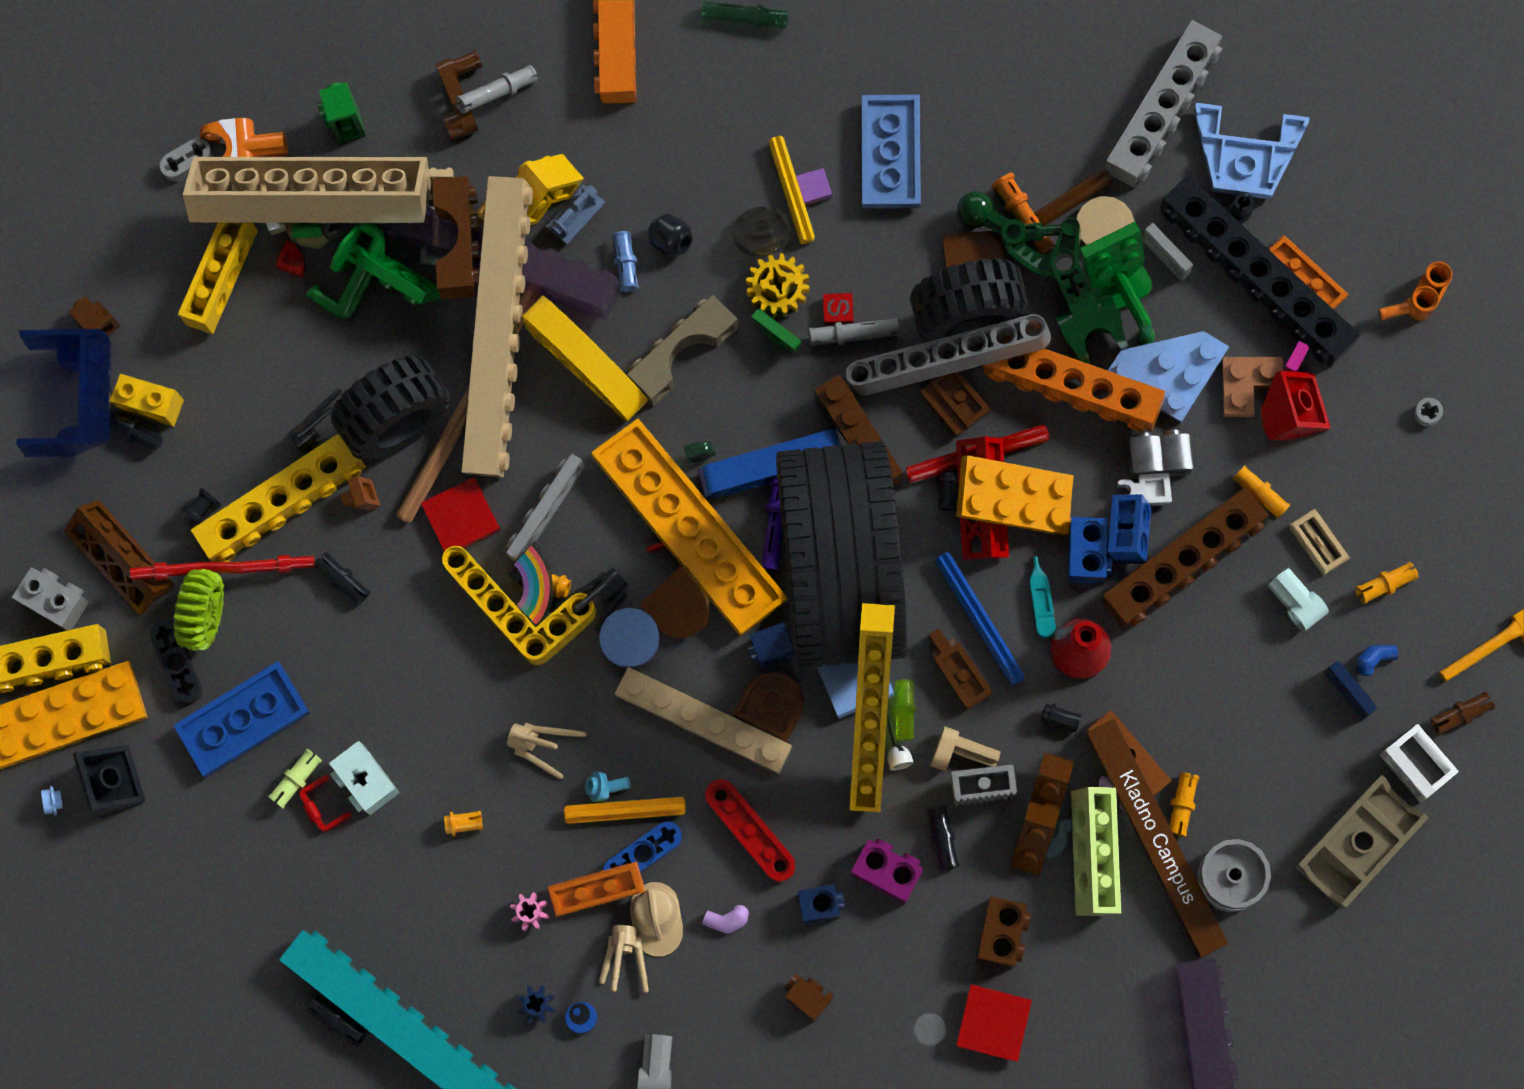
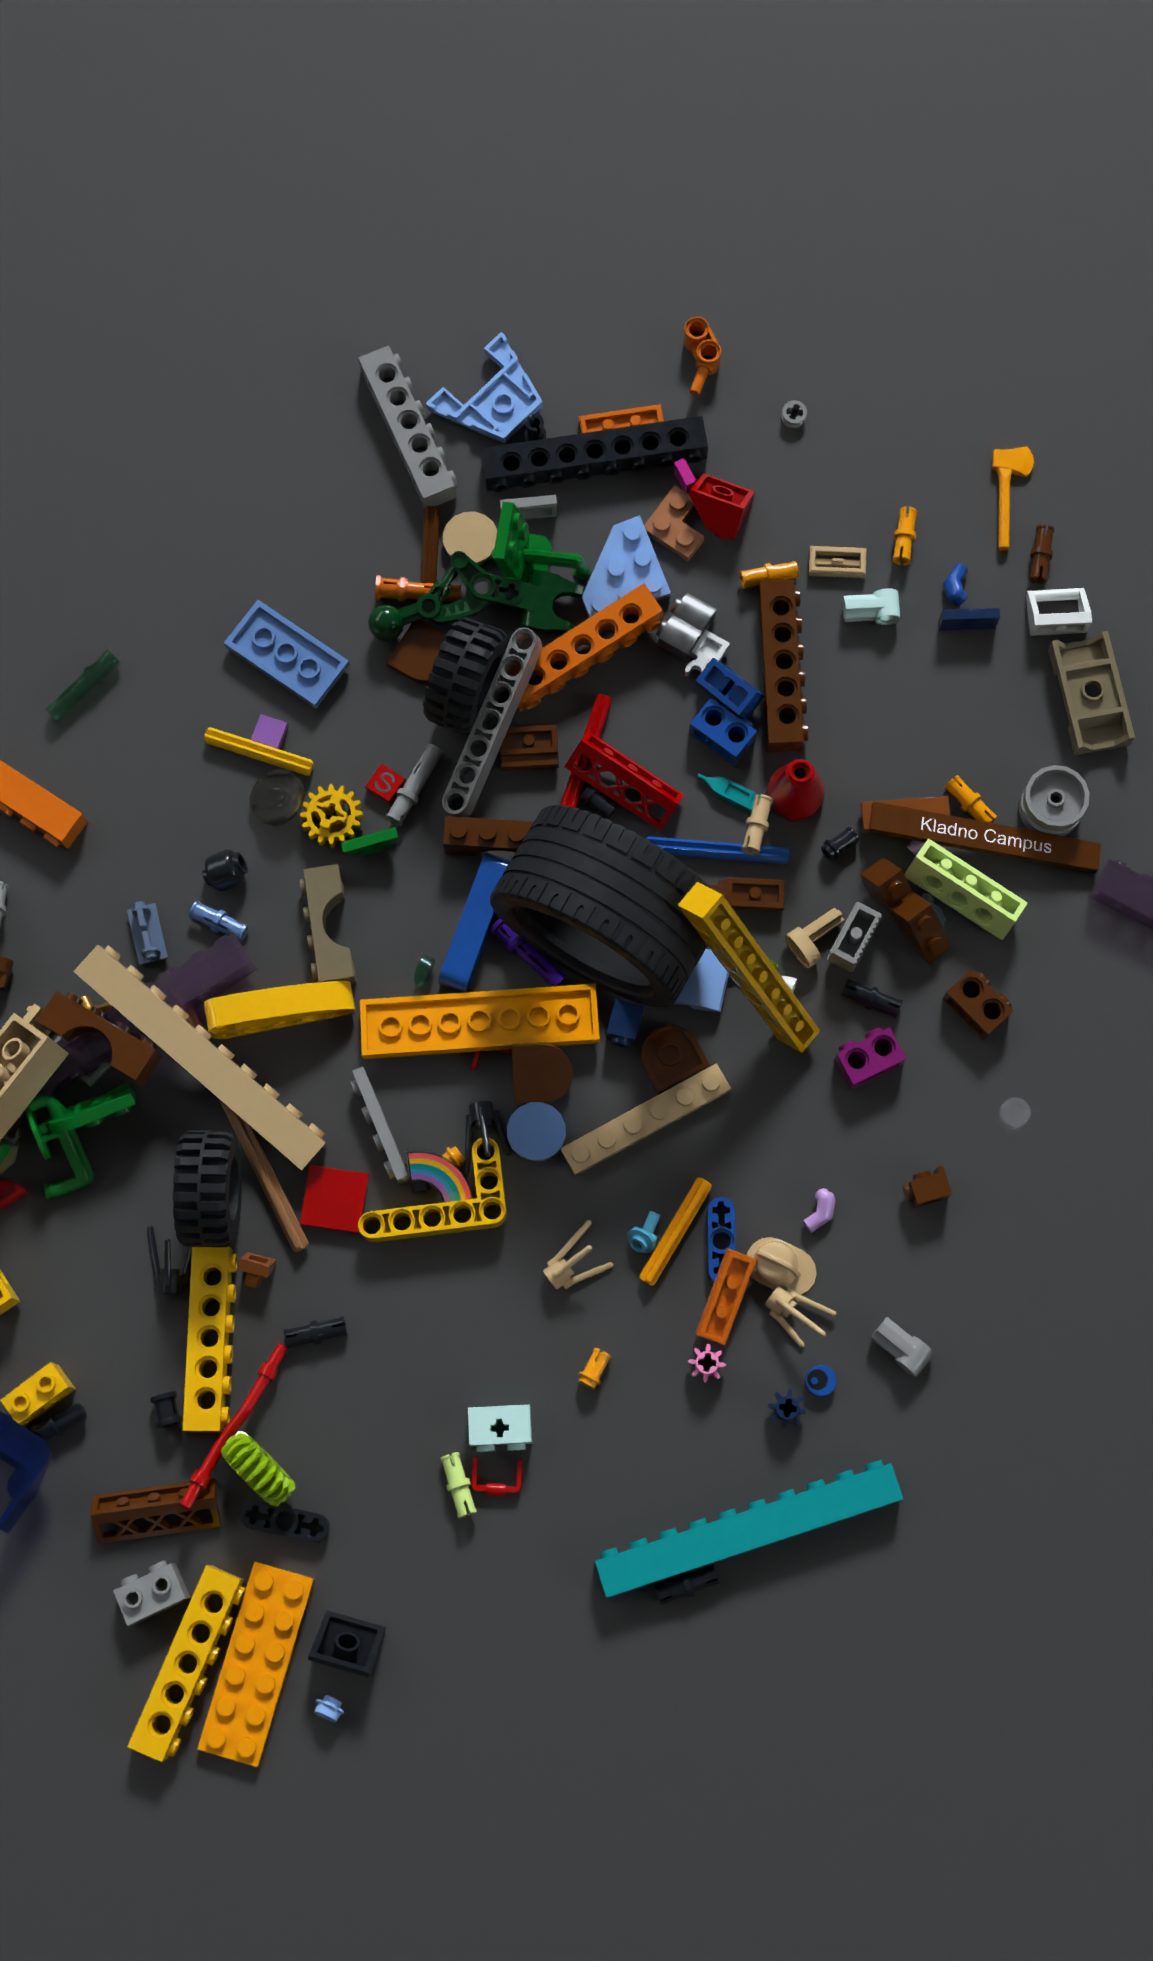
camera: 60 degrees left, 0 degrees up
(241, 719) = (375, 1496): blue plate -> none
(551, 180) = (105, 927): yellow brick -> none
(750, 830) = (762, 1142): red plate -> none
(810, 914) = (857, 1140): dark blue brick -> none
(994, 1023) = (1044, 1059): red tile -> none
(1014, 495) = (642, 753): light orange plate -> none
(1024, 635) = (757, 824): none -> tan pin

